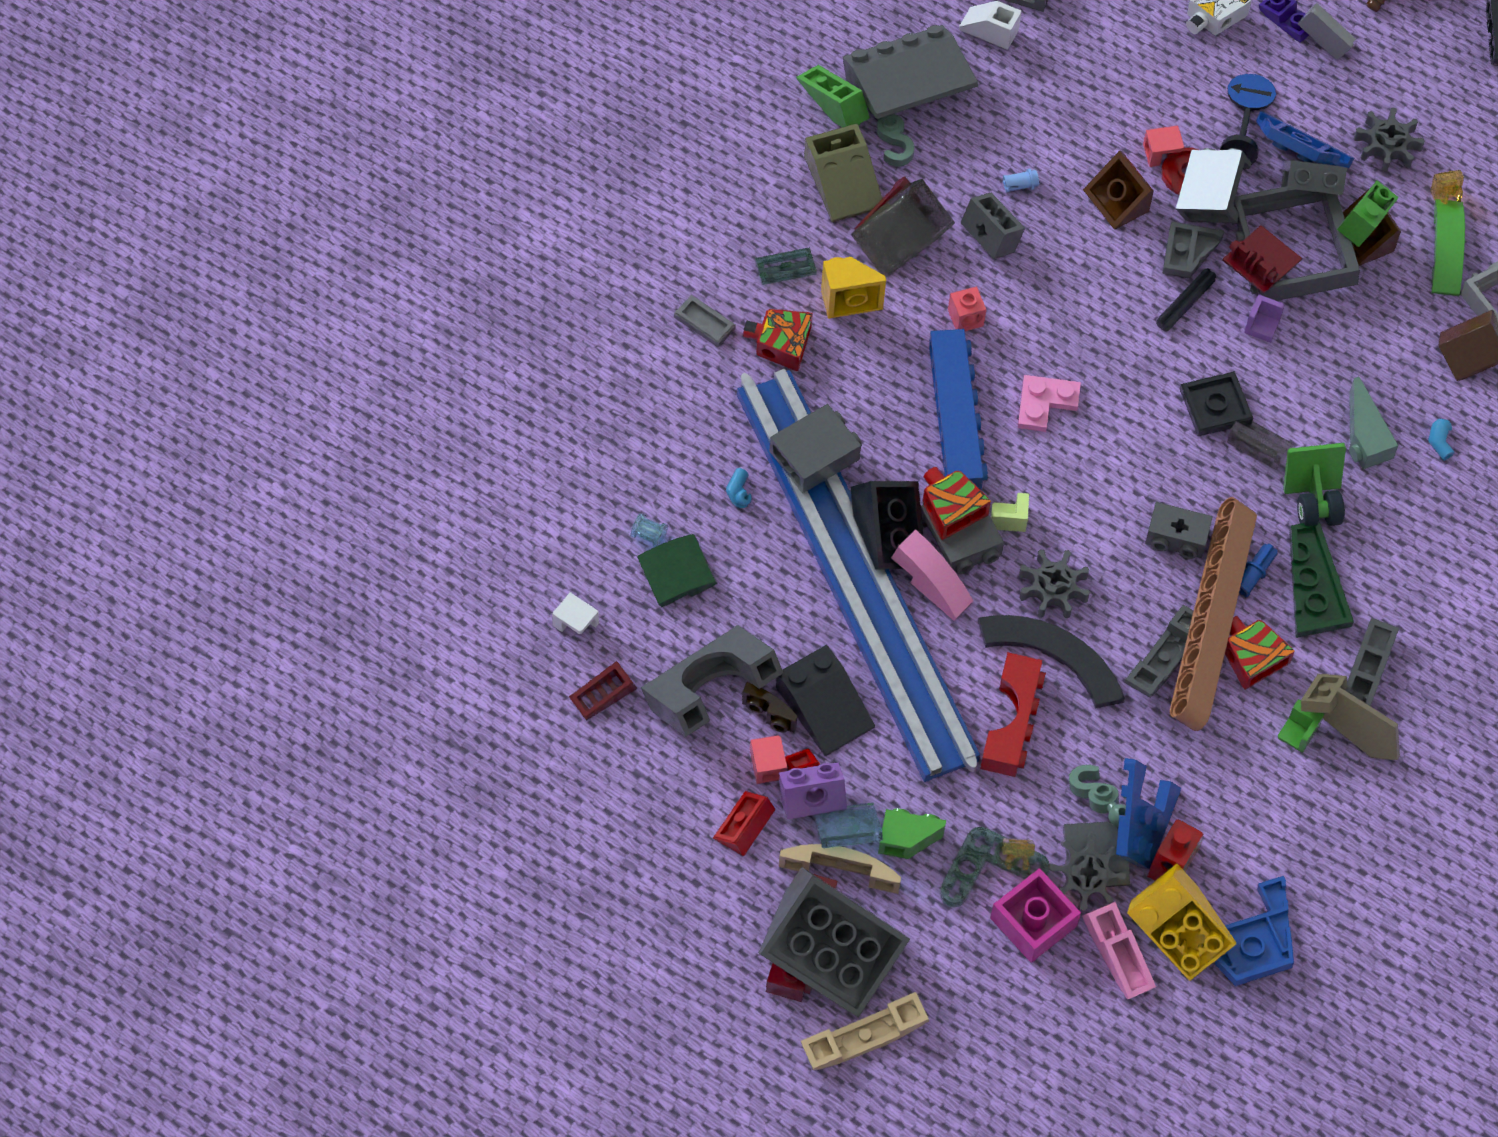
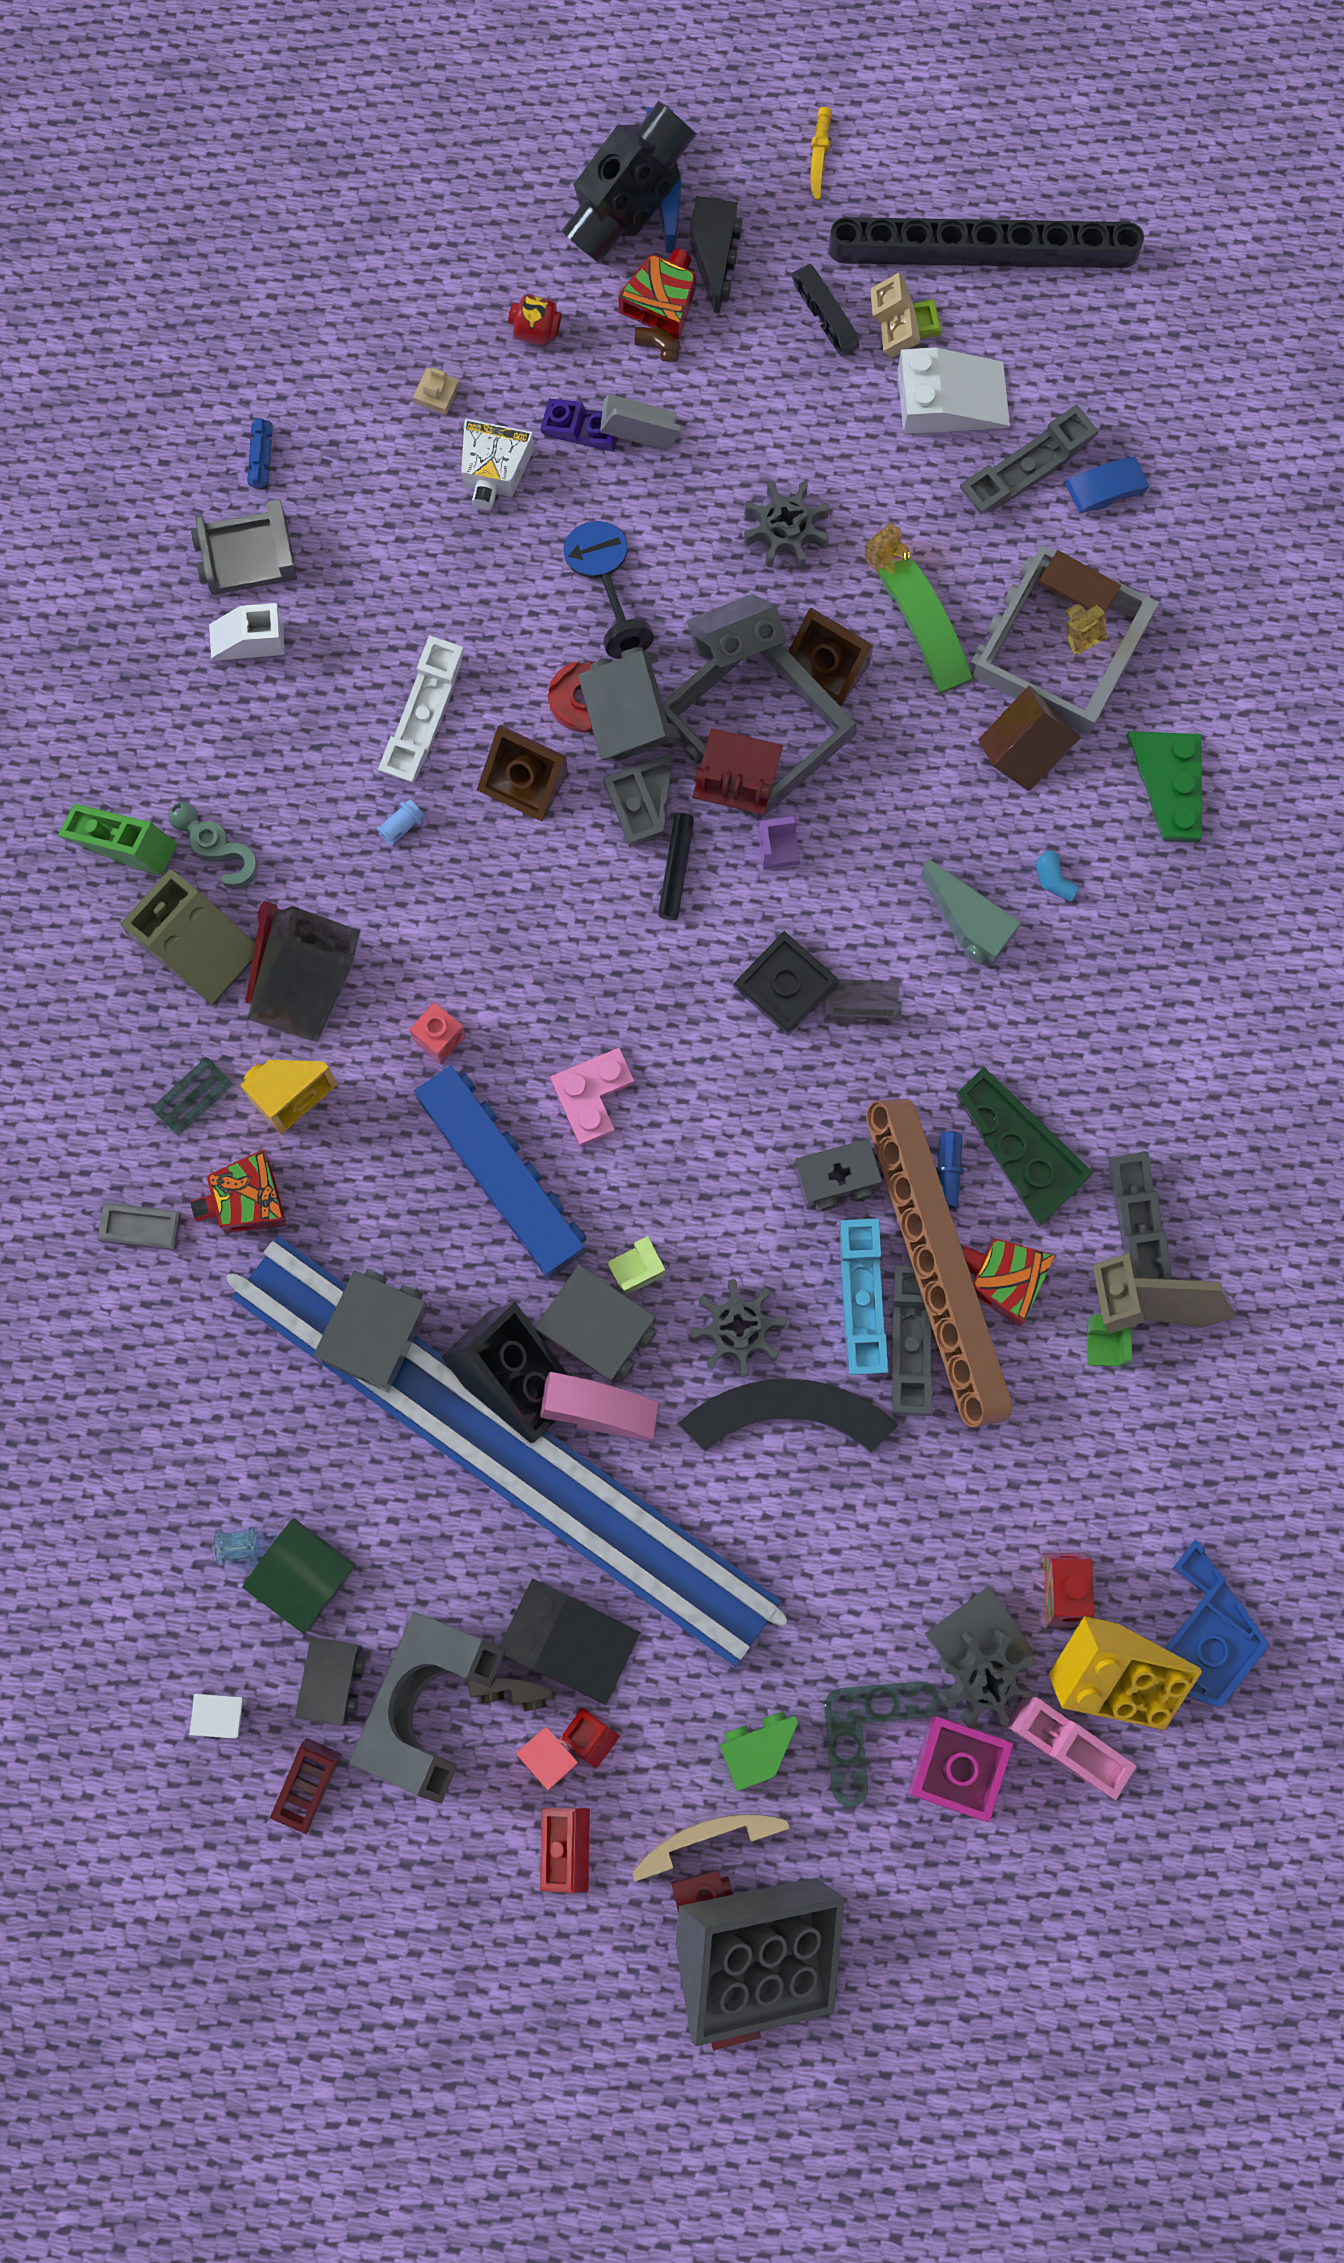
camera: 30 degrees left, 15 degrees up
(658, 638) = (330, 1681): none -> black brick
(736, 491) = (306, 1428): dark azure arm -> none
(825, 797) = (622, 1770): medium lavender brick -> none
(849, 827) = (687, 1789): clear light blue tile -> none
(865, 1034) = (853, 2034): tan slope -> none
(909, 71) = (191, 760): dark grey slope -> none
(953, 502) = (570, 1306): torso -> none
(992, 225) = (404, 905): dark grey brick -> none
(1004, 746) = (773, 1477): red arch -> none
(1017, 848) = (895, 1700): clear yellow tile -> none
(1079, 125) = (423, 710): none -> white slope
(1102, 796) = (947, 1570): sand green piece -> none
(1143, 824) = (1014, 1577): blue wing -> none
(1150, 609) = (863, 1297): none -> medium azure slope
(1161, 142) = (536, 680): coral panel -> none
(1307, 146) = (690, 588): blue wing -> none
(1312, 471) = (945, 1011): bright green plate -> none
(1367, 213) = (827, 647): bright green slope -> none

